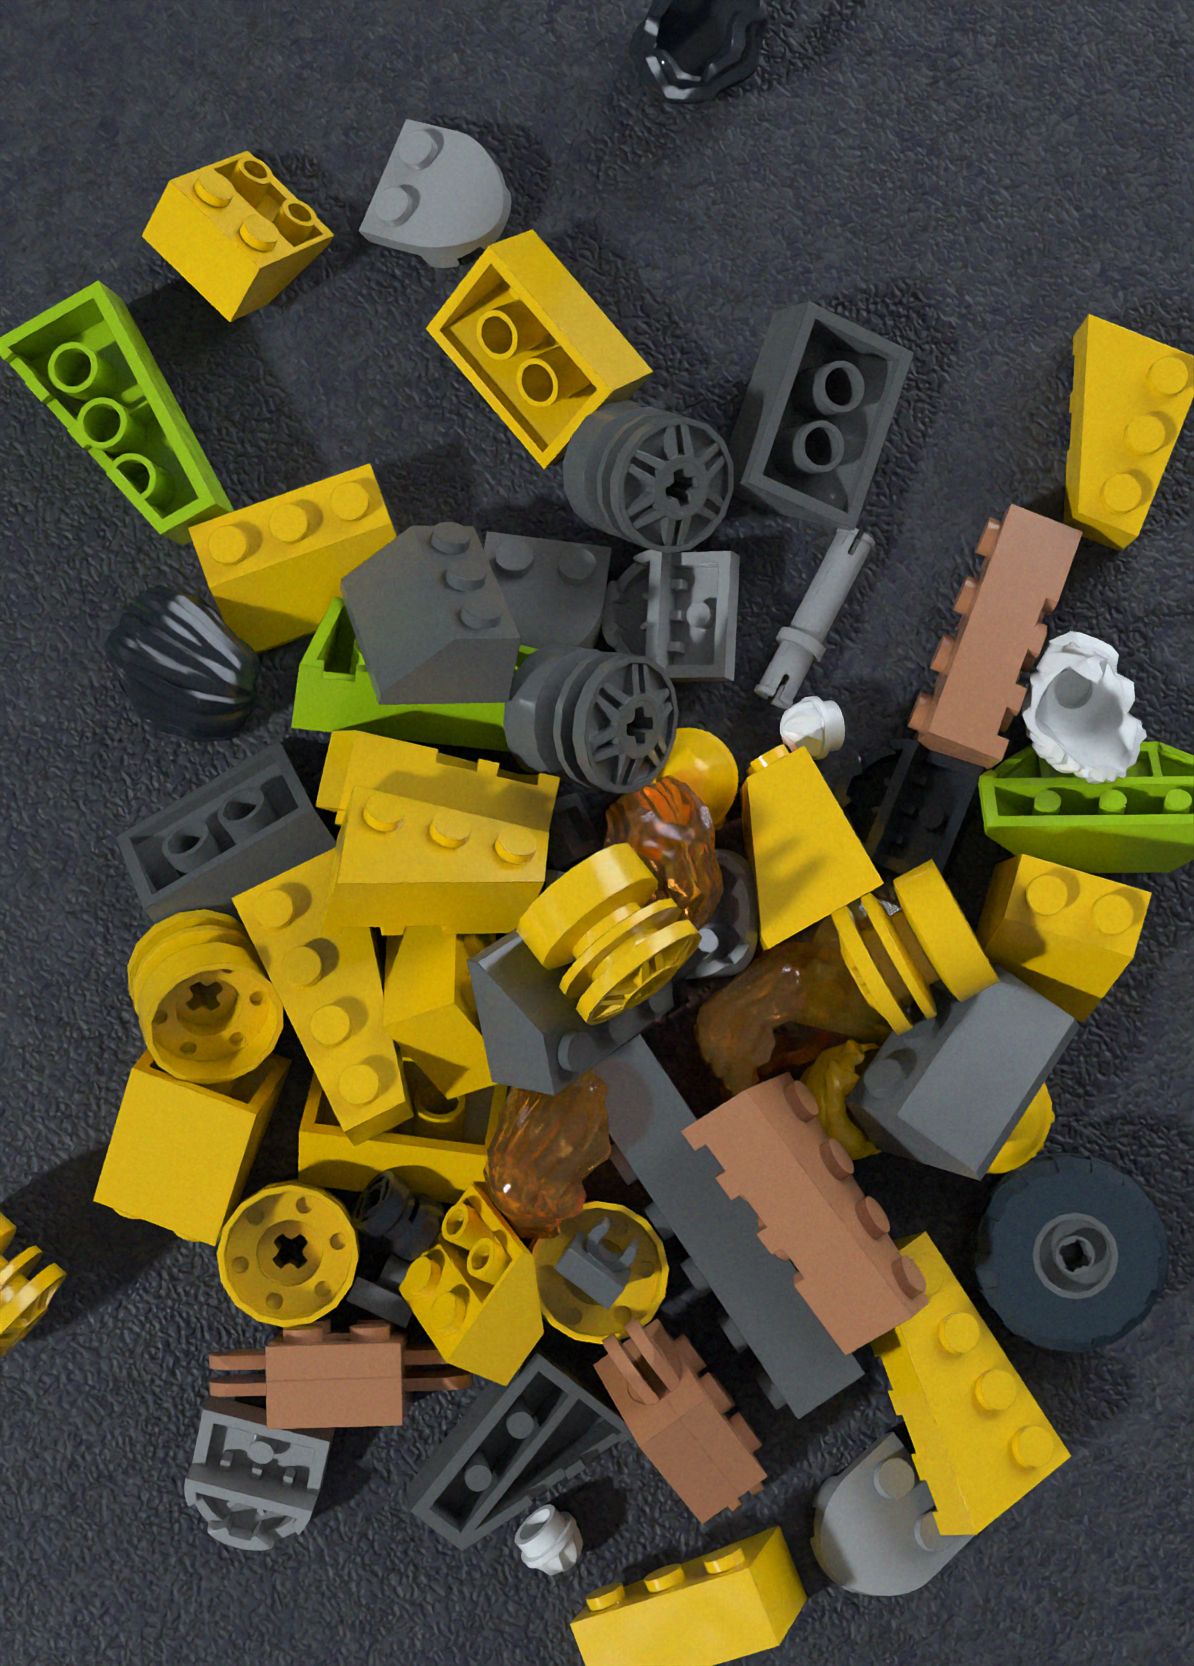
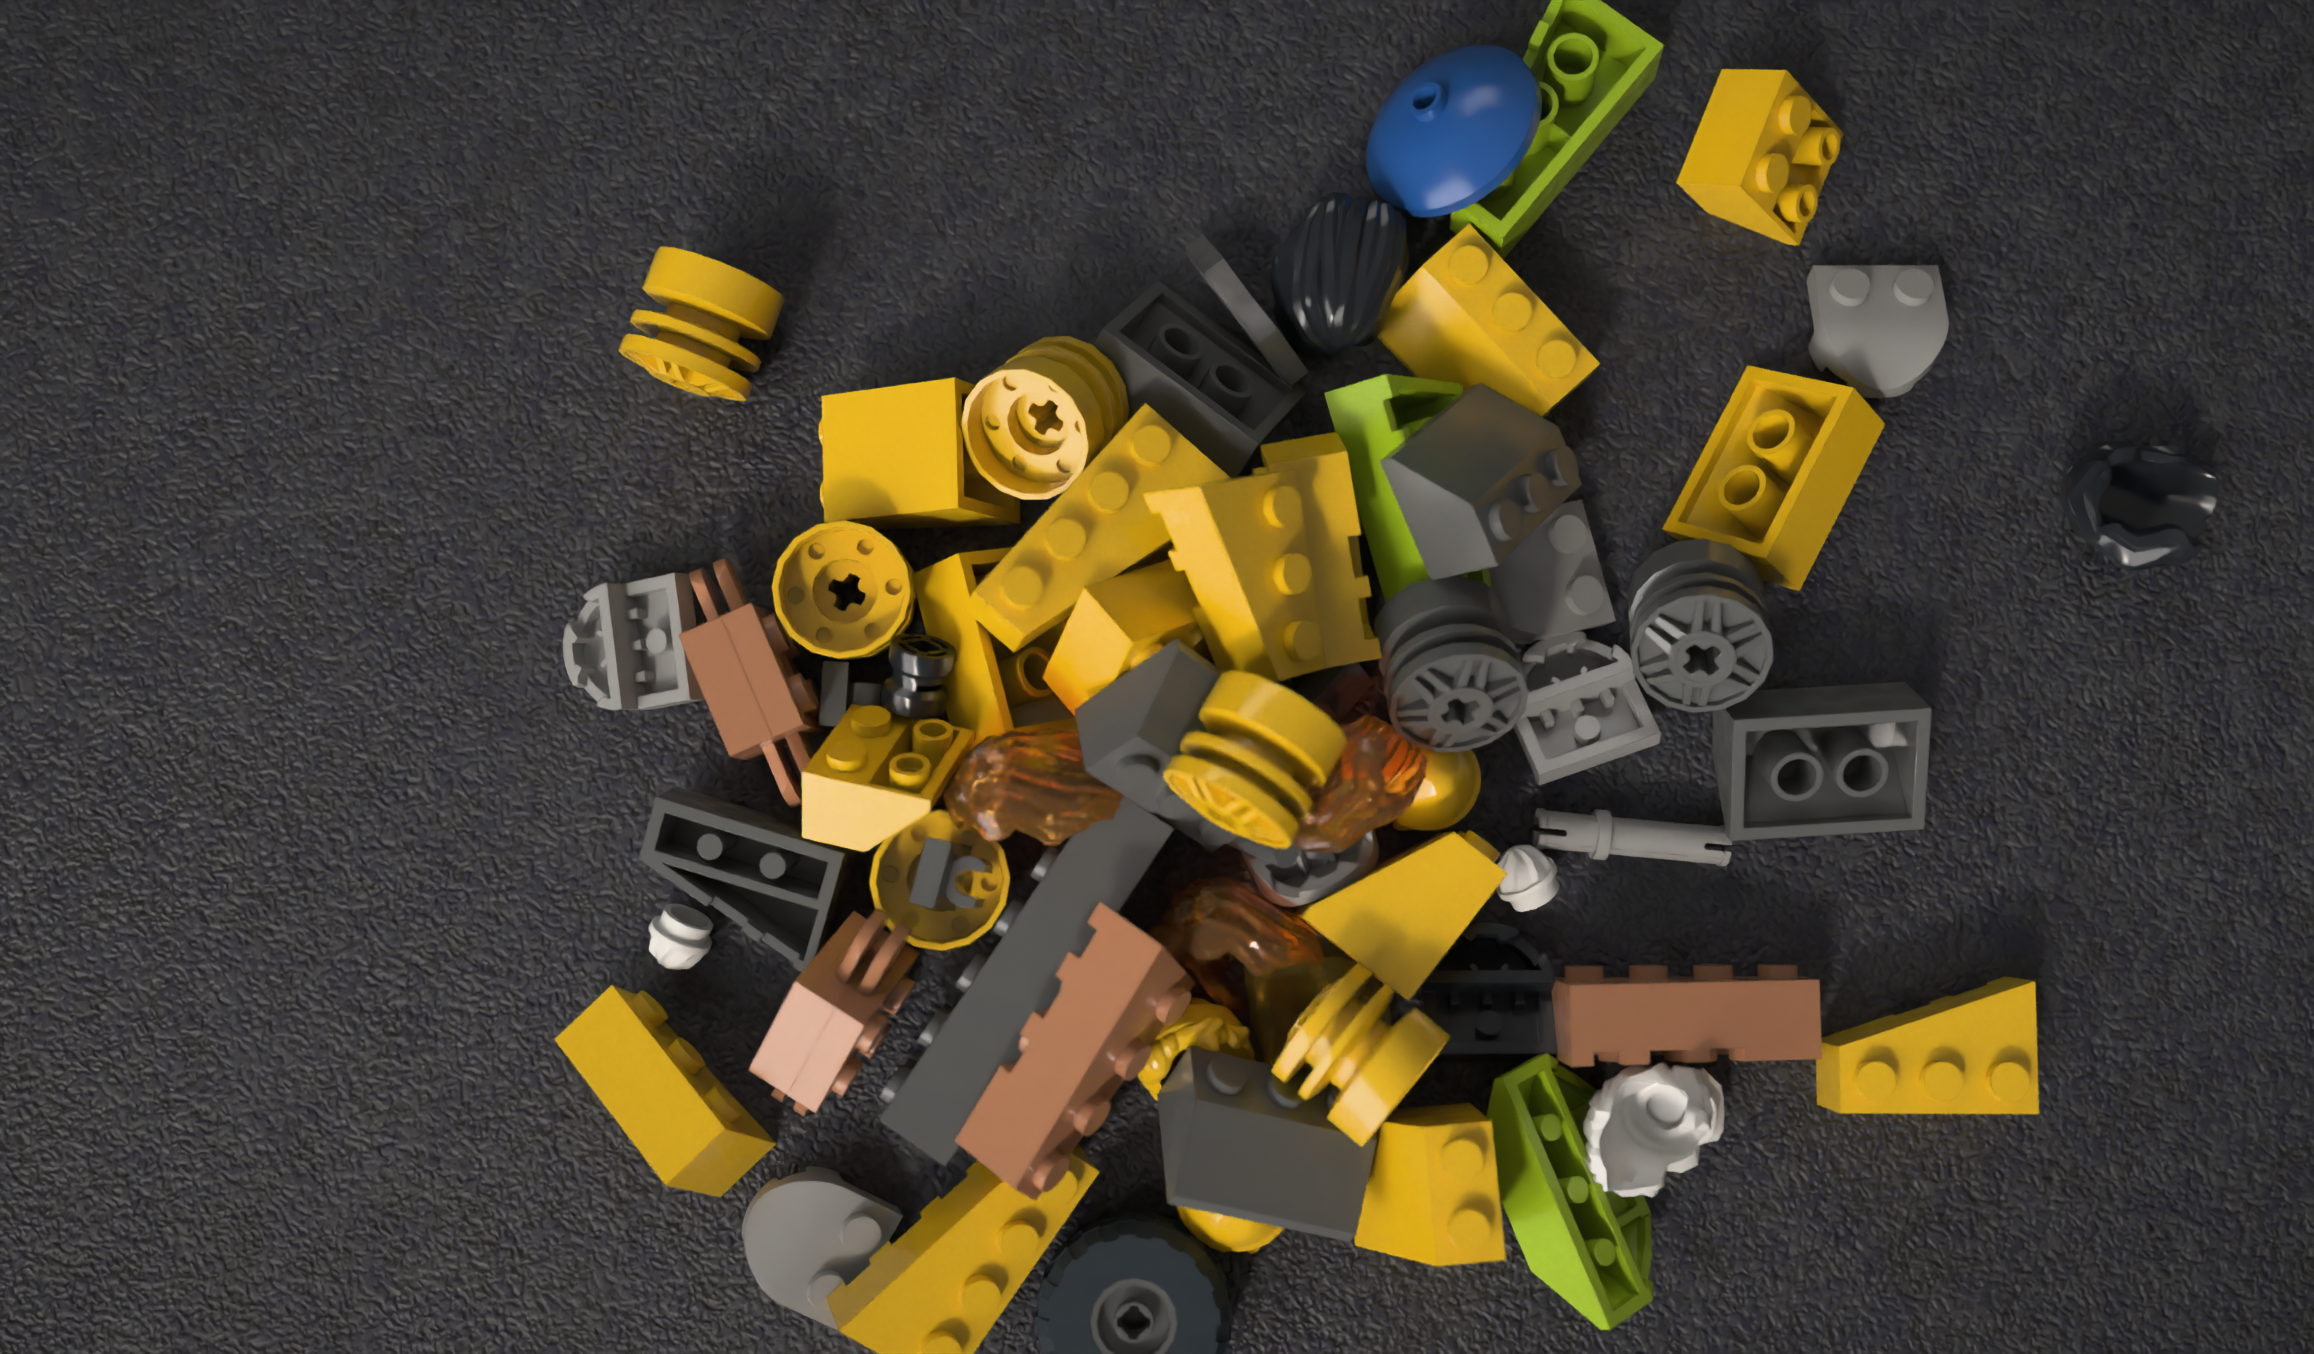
camera: 70 degrees right, 0 degrees up
(94, 505) = (1453, 130): none -> blue dish
(180, 767) = (1245, 310): none -> flat silver tile

